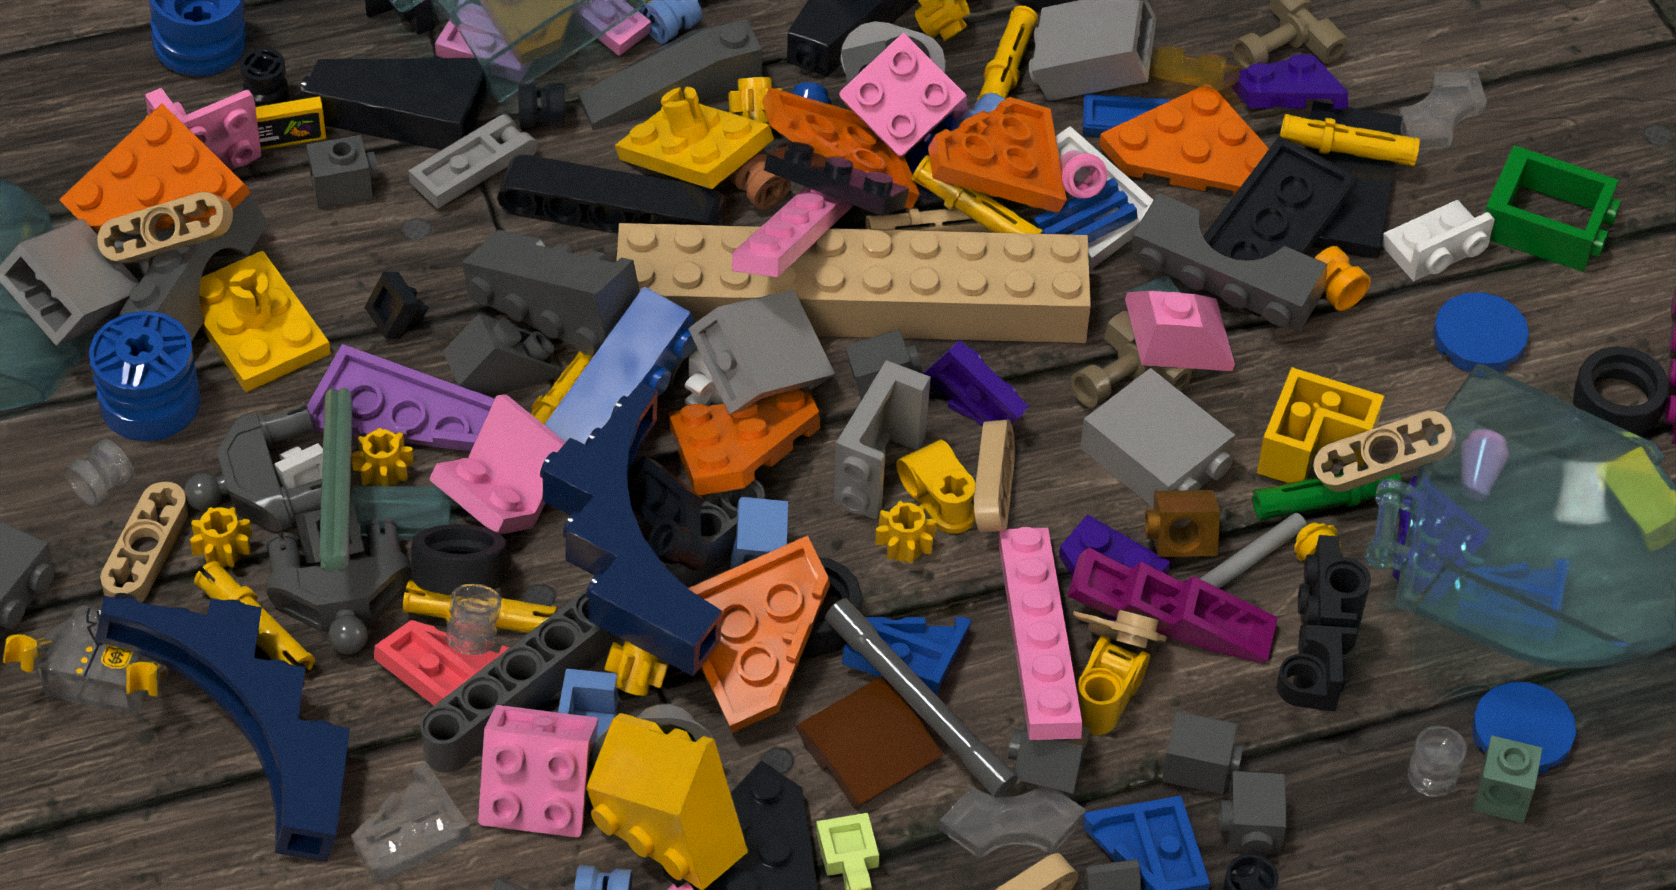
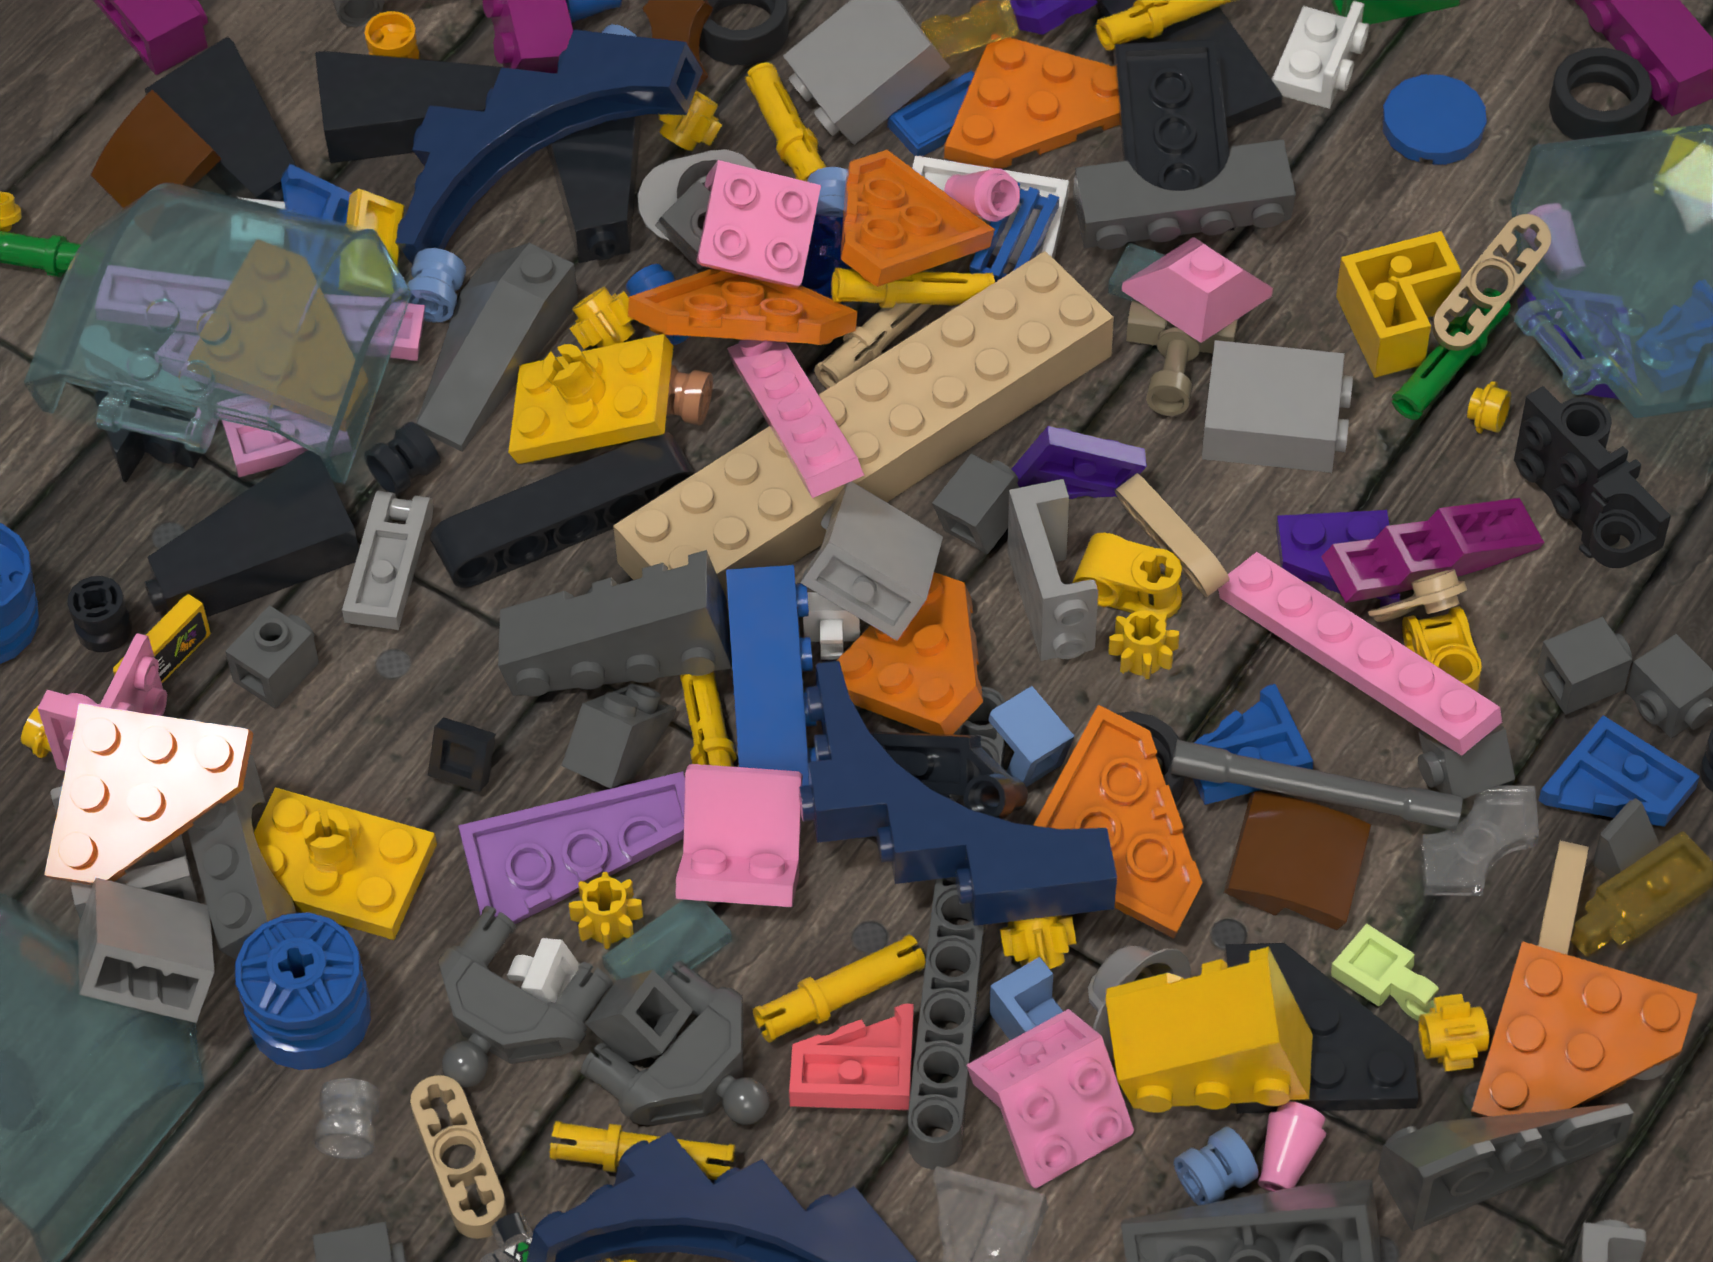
camera: 35 degrees left, 5 degrees up
(185, 232) = (181, 870): tan beam -> none
(221, 536) = (531, 1095): yellow gear -> none
(336, 480) = (619, 958): sand green axle -> none
(457, 556) = (791, 977): black tyre -> none
(473, 619) = (859, 1000): clear wheel -> none
(837, 178) = (781, 345): black plate -> none
(1196, 538) = (1373, 465): pearl gold brick -> none
(1255, 551) = (1441, 453): light grey bar -> none
(1343, 282) = (1294, 137): light orange wheel -> none

